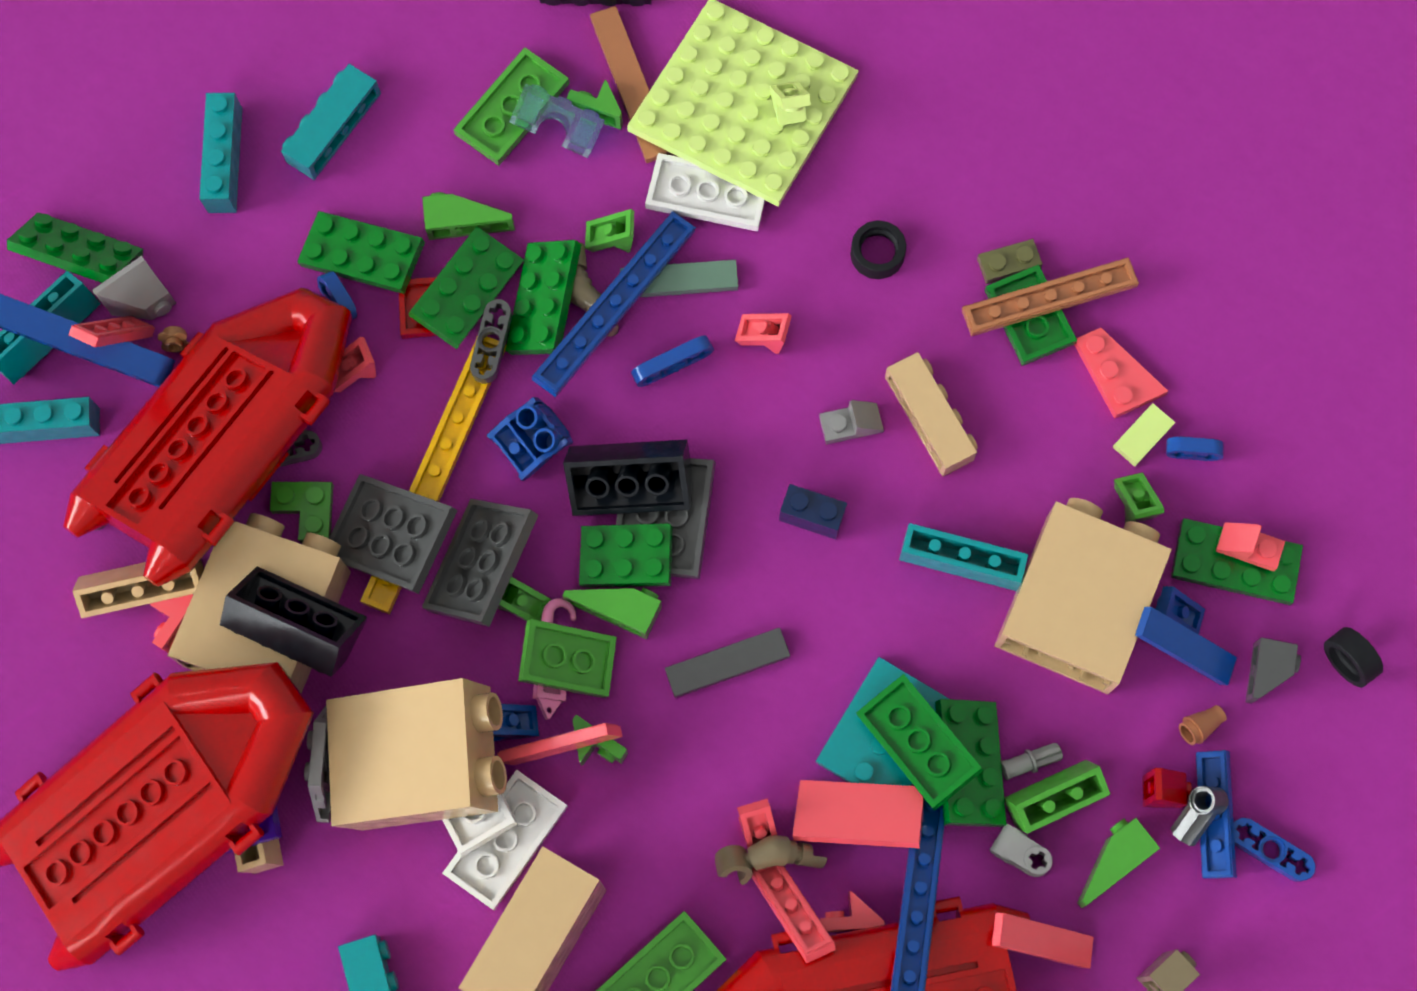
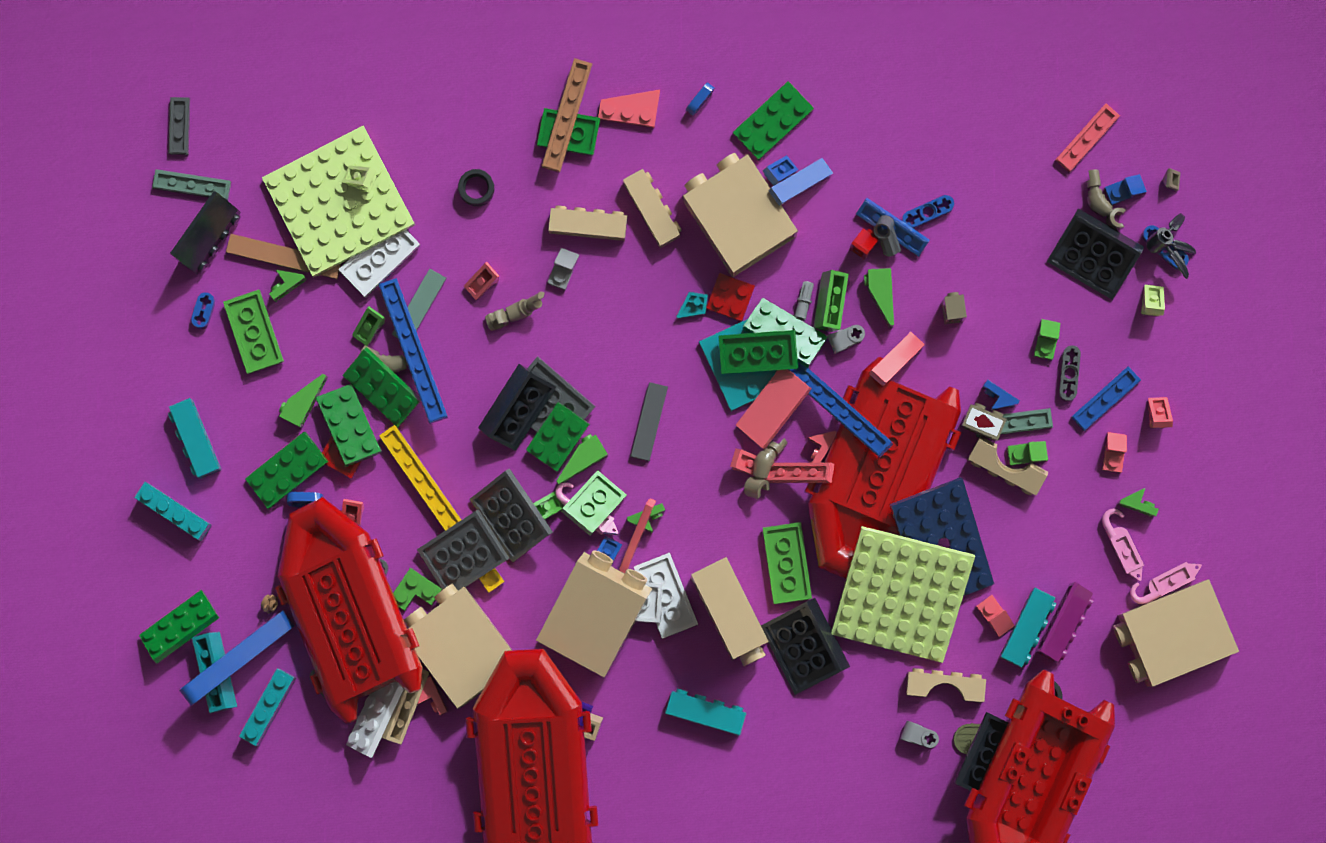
camera: 55 degrees left, 10 degrees up
(90, 562) = (374, 719): none -> white plate
(111, 331) = (251, 632): coral tile -> none
(135, 292) = (231, 607): light grey slope -> none
(292, 620) = (484, 631): black slope -> none
(317, 770) = (568, 668): light grey wing -> none
(499, 34) = (198, 309): none -> blue beam
(503, 323) = (375, 425): dark grey beam -> none
(530, 437) = (457, 444): blue slope -> none
(580, 125) = (295, 302): clear light blue arch -> none
(672, 361) = (465, 341): blue beam -> none
(751, 396) = (514, 312): none -> dark tan piece
(812, 511) = (599, 323): dark blue brick -> none
(921, 618) = (693, 305): none -> teal piece
(963, 557) = (677, 261): teal brick -> none
(966, 660) = (730, 297): none -> red plate
(1008, 260) = (530, 121): olive plate -> none
(1008, 480) = (651, 208): none -> tan brick
(1138, 498) = (706, 148): bright green slope -> none
(1143, 434) = (674, 119): yellowish green tile -> none
(1201, 725) = (844, 201): nougat cone -> none
(1250, 545) = (770, 109): coral slope -> none
(1270, 666) = (839, 145): dark grey slope -> none
(1353, 657) = (862, 100): black tyre -> none

